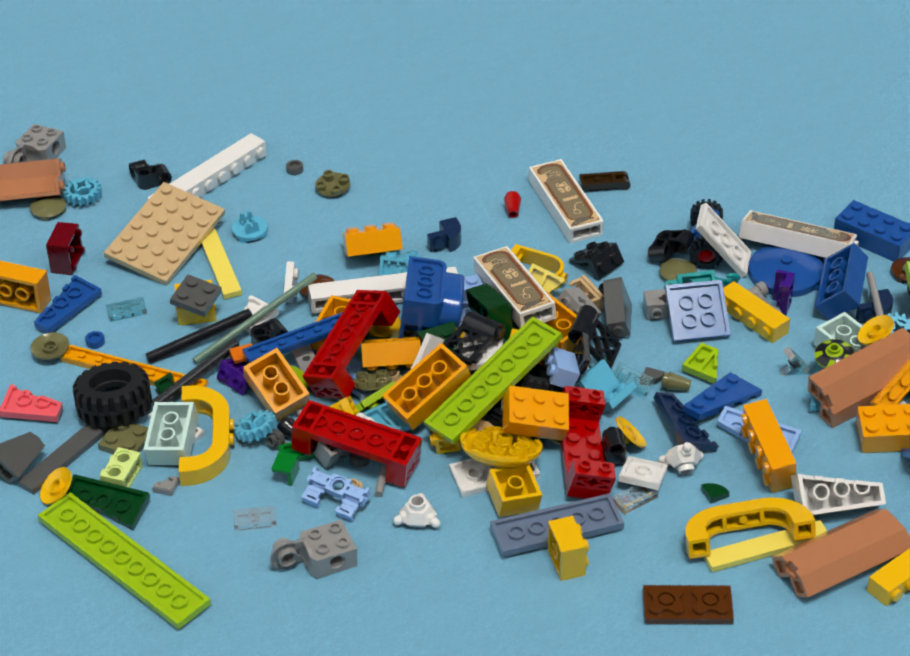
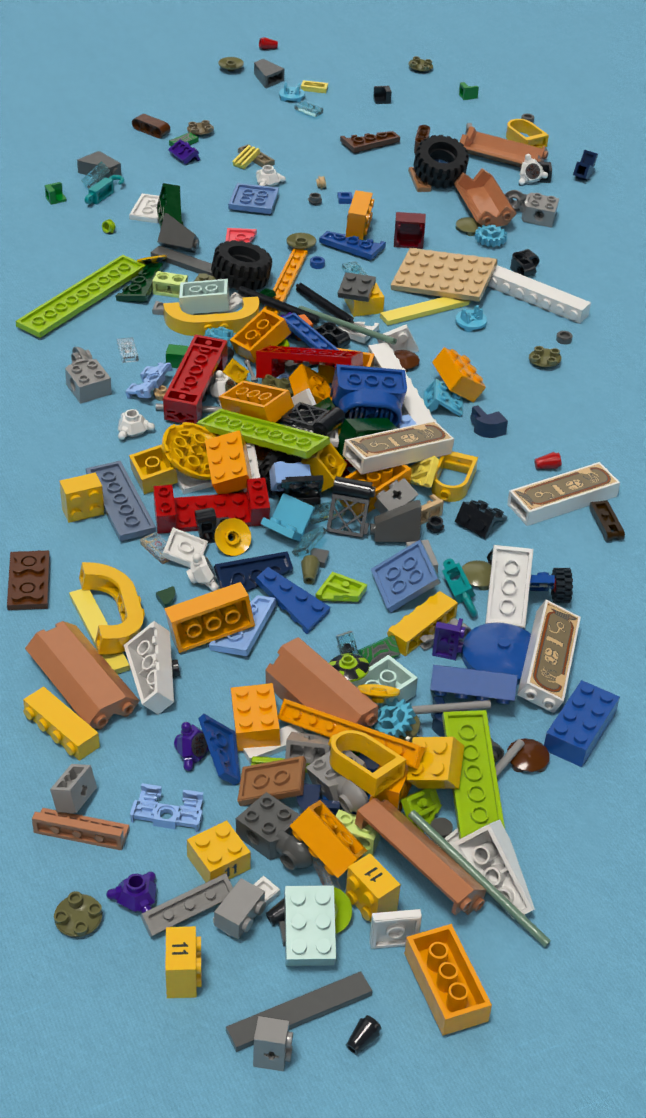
camera: 80 degrees right, 0 degrees up
(793, 343) = (380, 649): none -> tile

